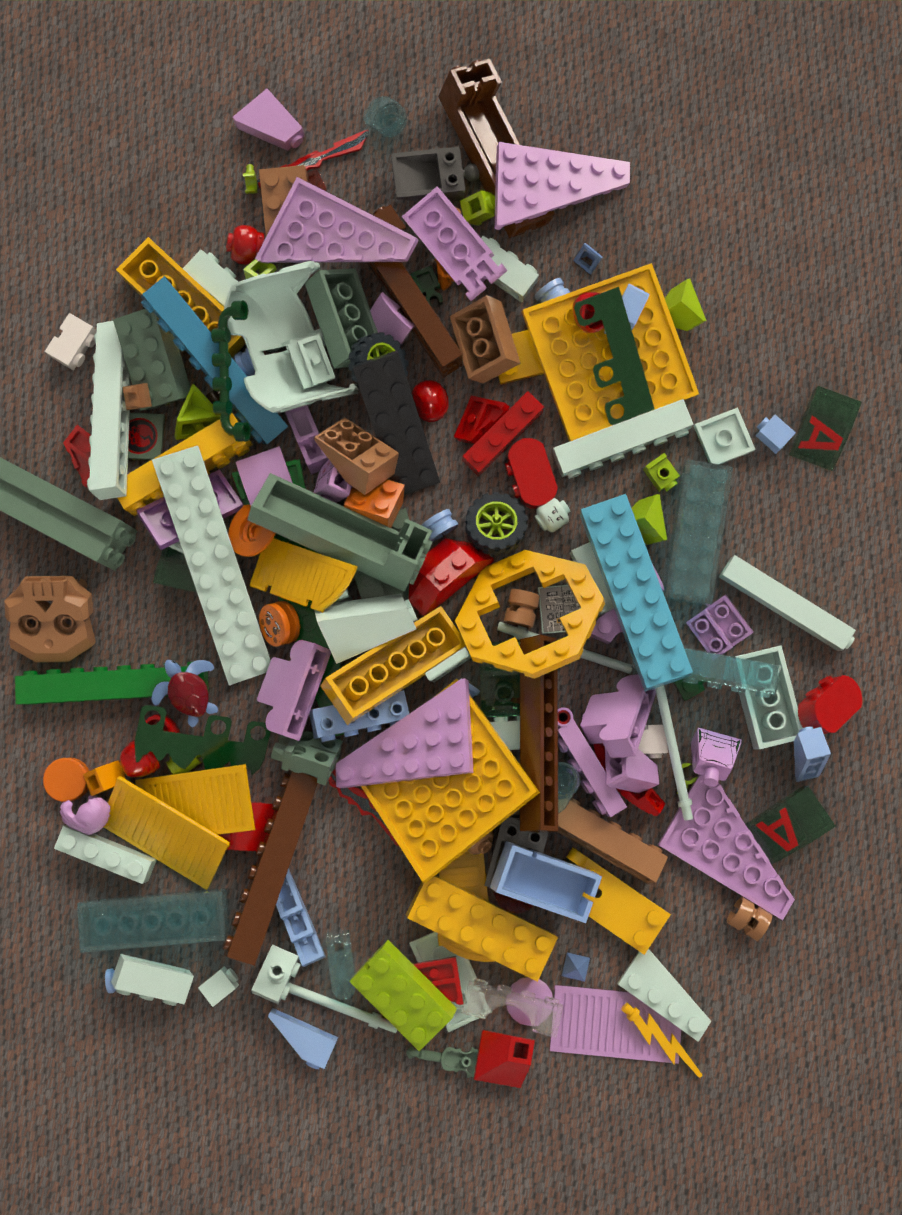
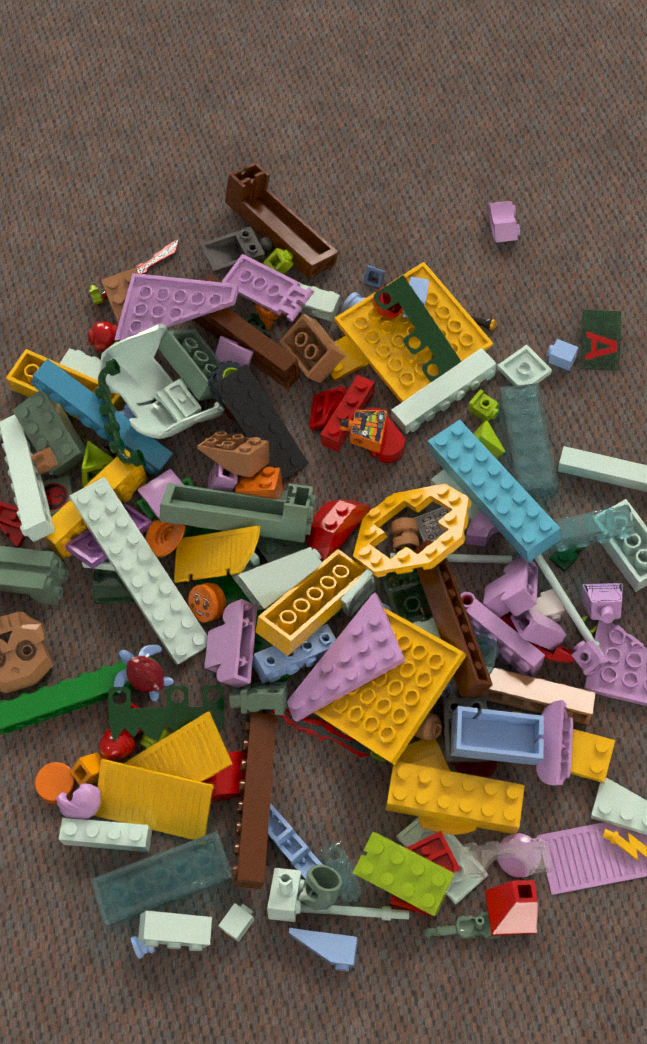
camera: 10 degrees left, 20 degrees down
(270, 122) = (100, 251): lavender slope -> none
(305, 431) = (190, 458): lavender slope -> none
(314, 982) = (321, 887): none -> sand green piece
(386, 116) = (189, 225): clear light blue cap -> none
(430, 400) = (284, 405): red hat -> none
(439, 524) = (321, 490): light blue wheel -> none
(496, 503) = (361, 470): black wheel -> none
(516, 468) = (366, 428): none -> torso
(542, 180) = (317, 233): lavender wing -> none
(552, 515) = (407, 460): light aqua head -> none
(575, 966) = (549, 814): medium blue slope -> none
(606, 905) = (557, 744): none -> lavender brick
(675, 818) = (595, 657): none -> lavender brick
(684, 306) = (461, 288): lime slope -> none
(703, 363) = (490, 323): none -> black piece
(719, 626) = (571, 502): lavender slope -> none
(765, 230) = (503, 221): none -> lavender brick

